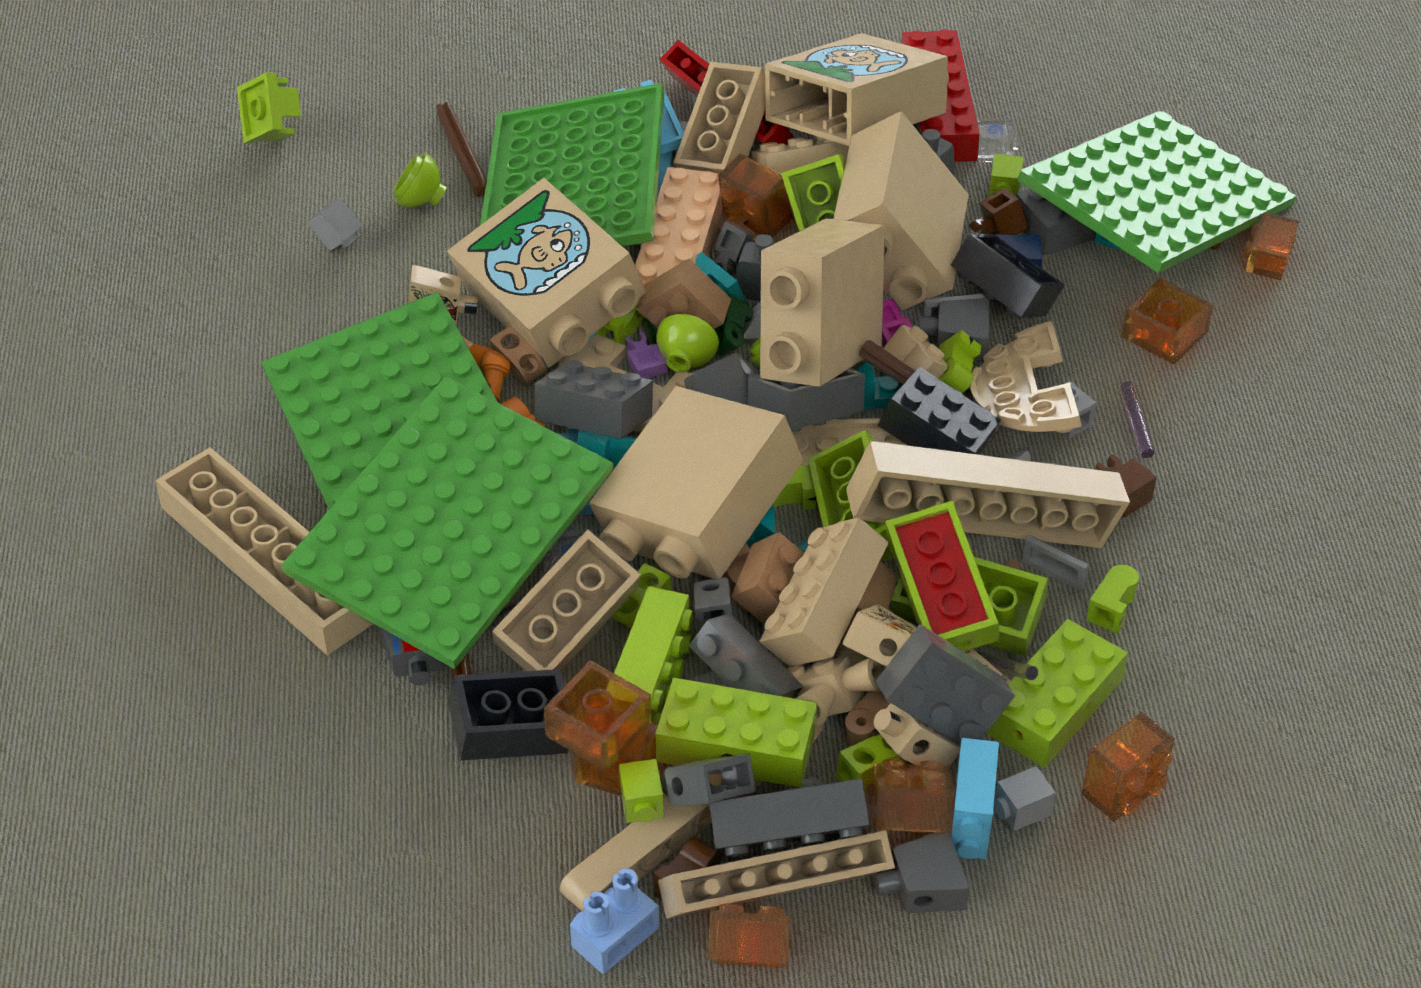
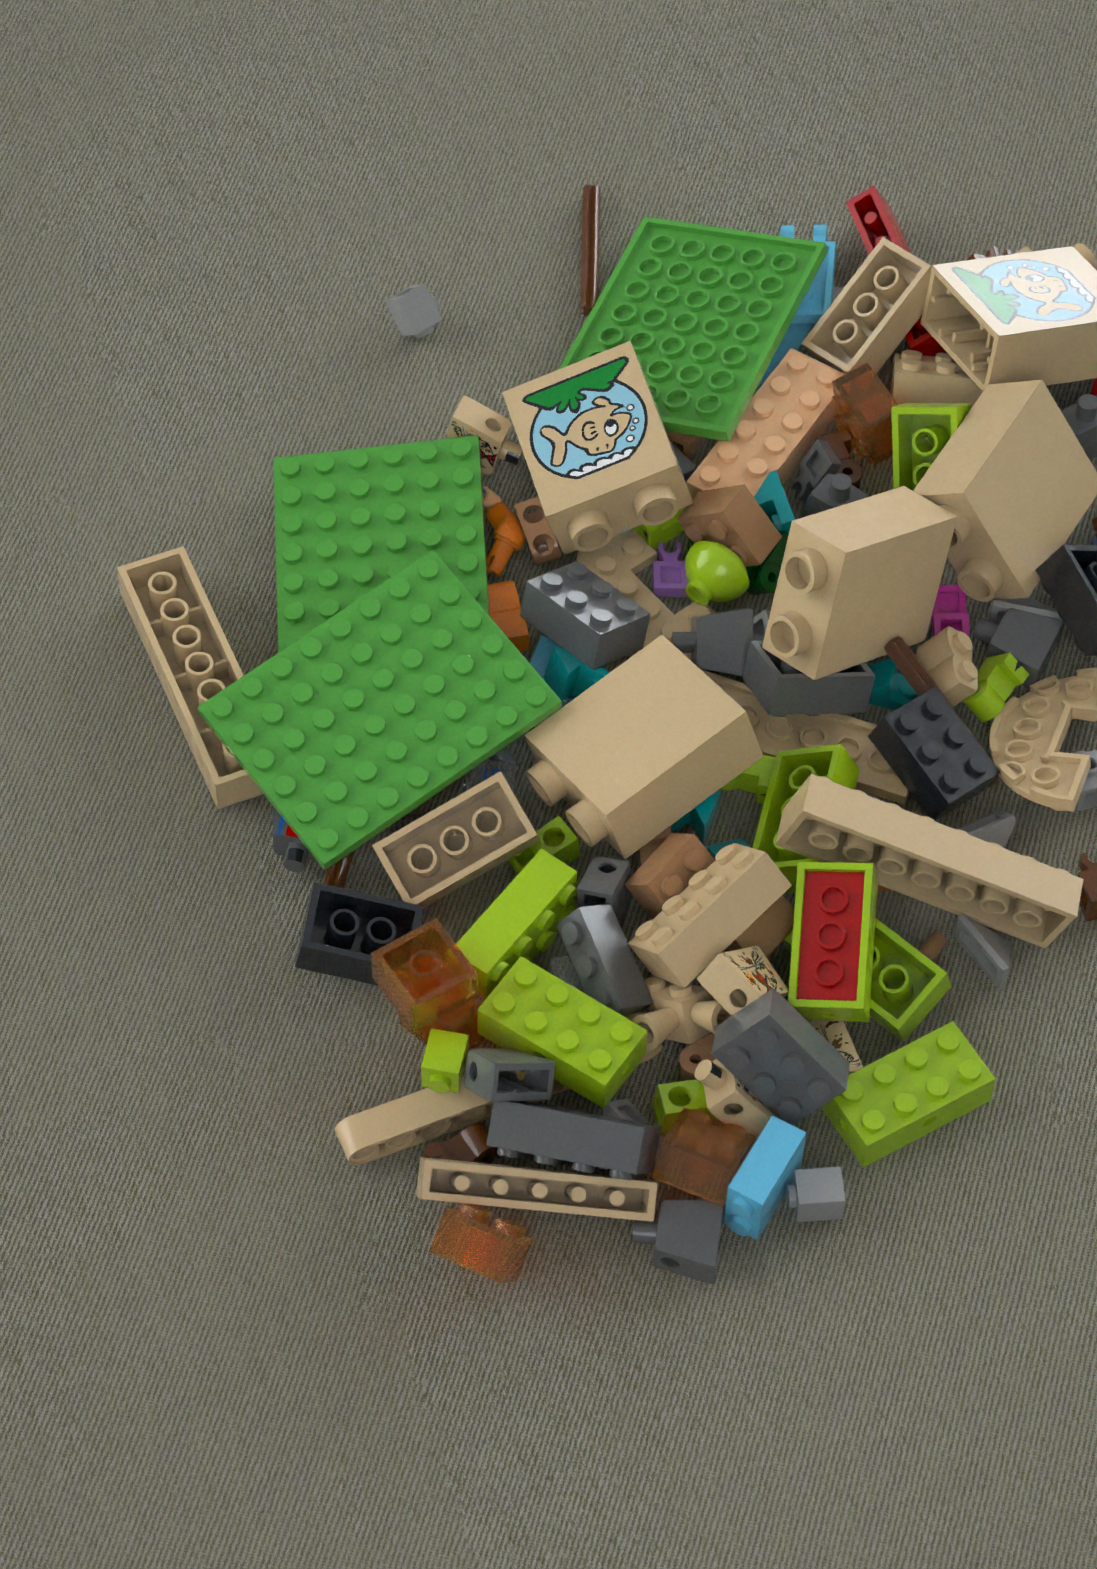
camera: 20 degrees right, 10 degrees up
(263, 105) = (395, 141): lime panel -> none
(419, 183) = (522, 285): lime piece -> none
(614, 922) = (369, 1182): light blue brick -> none
(1011, 667) = (864, 1050): bar -> none
(1110, 600) = (1021, 1008): lime leg -> none
(1128, 767) = (934, 1198): clear orange brick -> none

